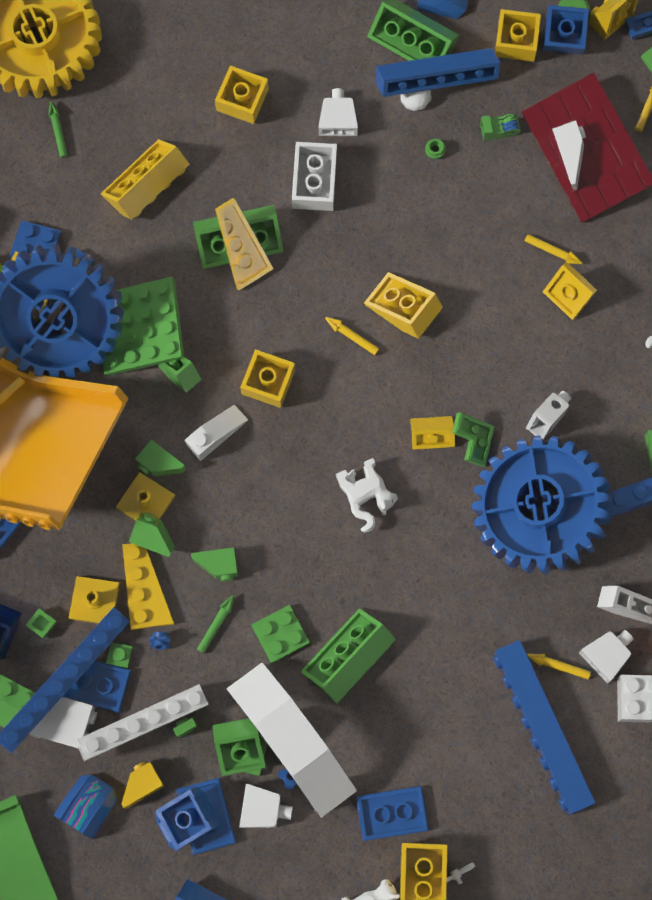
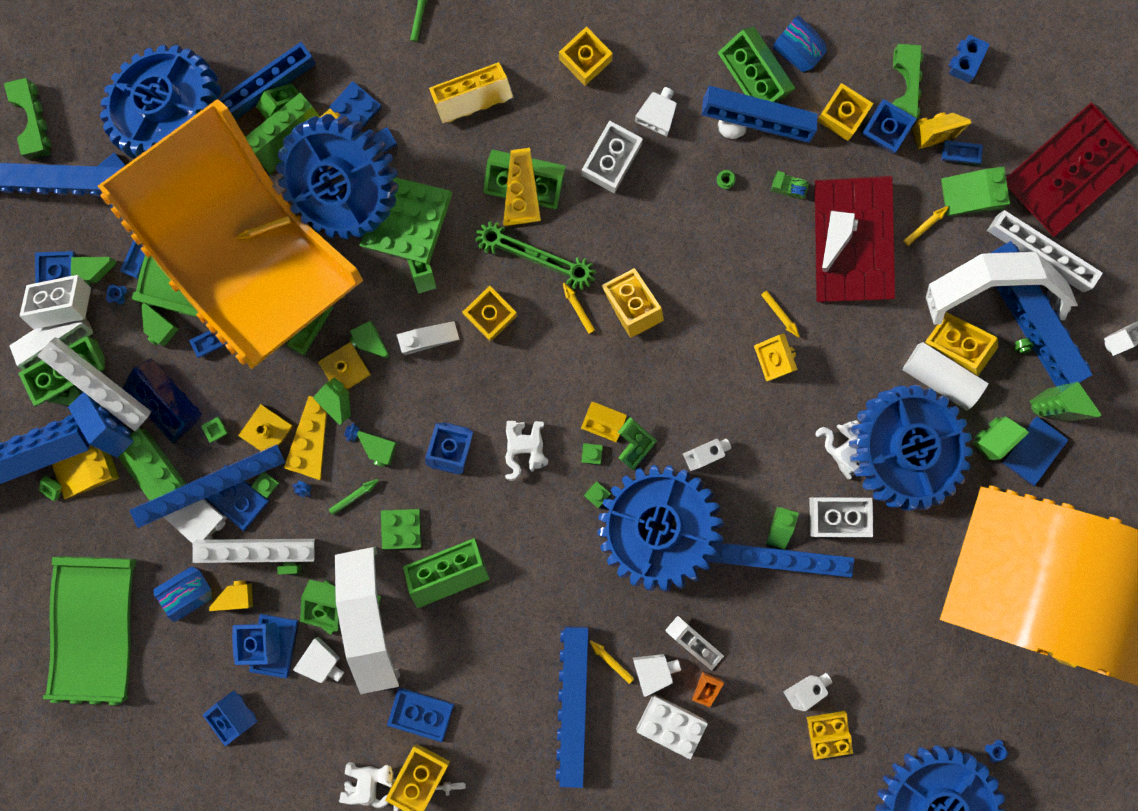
camera: 25 degrees right, 10 degrees up
(91, 490) = (303, 339): none -> bright green plate
(183, 560) = (351, 432): none -> blue plate
(285, 303) = (535, 255): none -> bright green arm
(291, 530) = (449, 448): none -> blue slope
(436, 469) = (591, 453): none -> bright green plate
(461, 506) = (597, 494): none -> bright green plate

